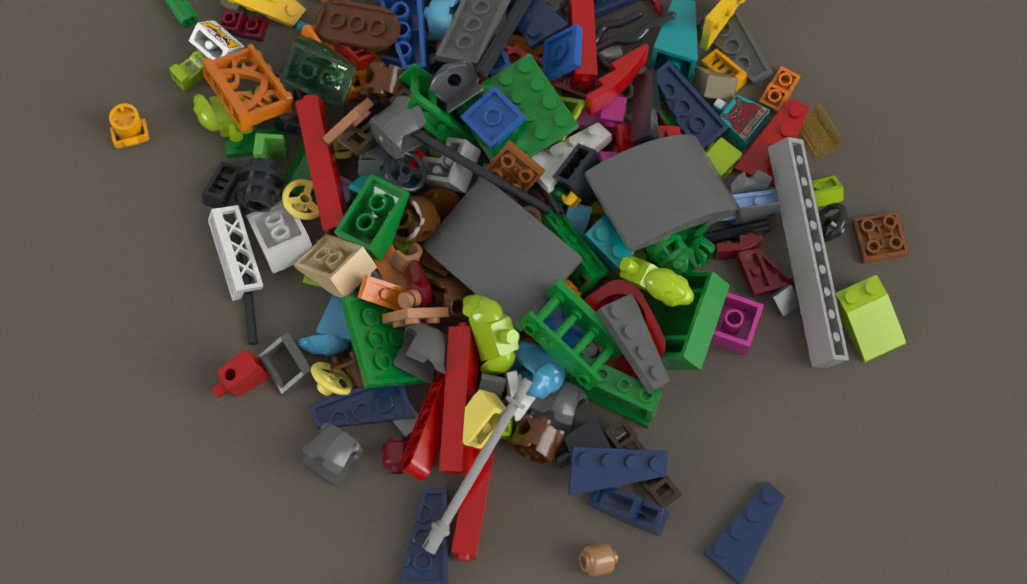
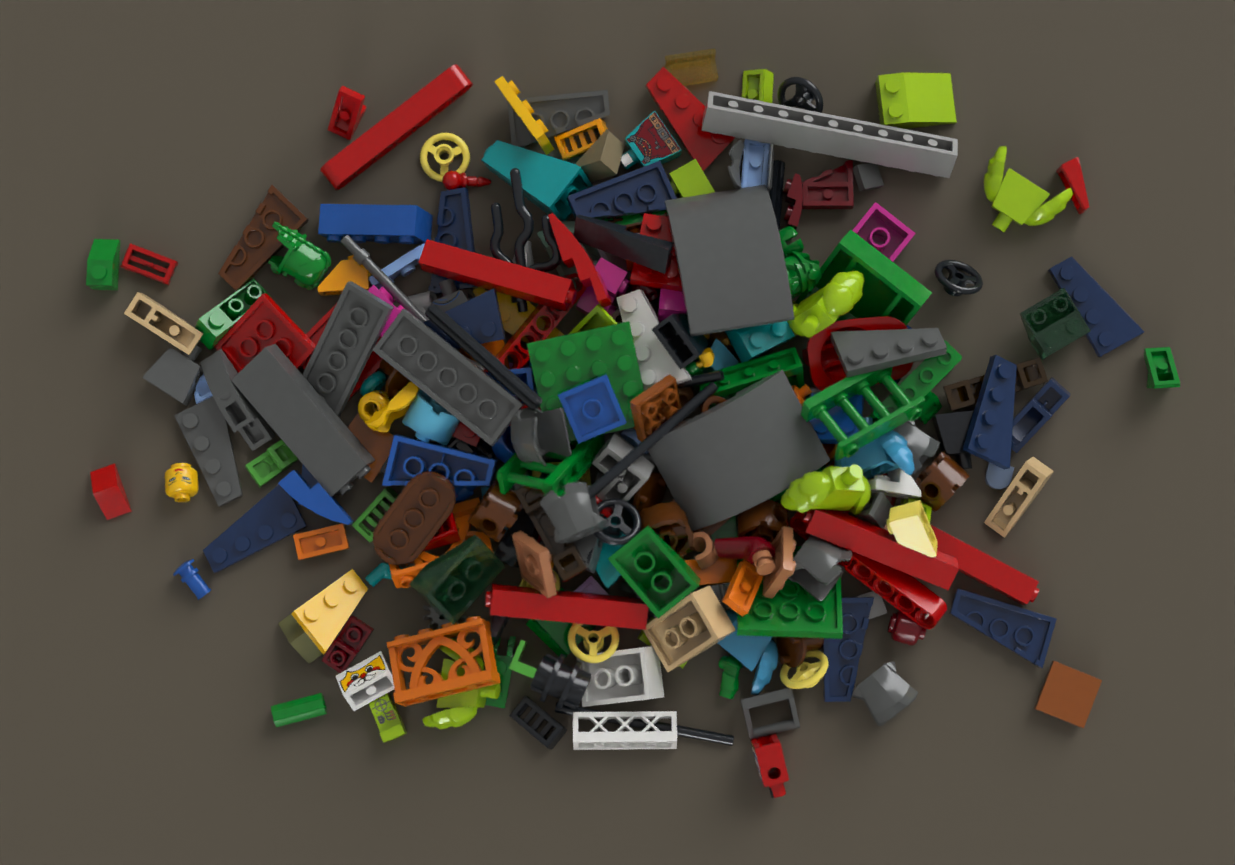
camera: 70 degrees left, 15 degrees up
(127, 126) = (432, 807): light orange piece -> none
(305, 322) = (730, 676): none -> green arm
(441, 527) = (1003, 606): light grey bar -> none
(552, 517) = (1018, 496): none -> tan slope
(559, 496) = (997, 477): none -> sand blue tile
(562, 52) = (533, 308): blue plate -> none
(598, 559) = (1077, 462): medium nougat head -> none
(601, 408) = (931, 407): none -> green plate
(716, 497) = (1053, 324): none -> clear green slope
(723, 402) = (957, 281): none -> black piece
(779, 89) = (626, 89): orange slope -> none
(819, 430) = (1018, 197): none -> lime torso
(858, 473) = (1072, 177): none -> red slope
(880, 237) = (828, 53): dark orange tile -> none

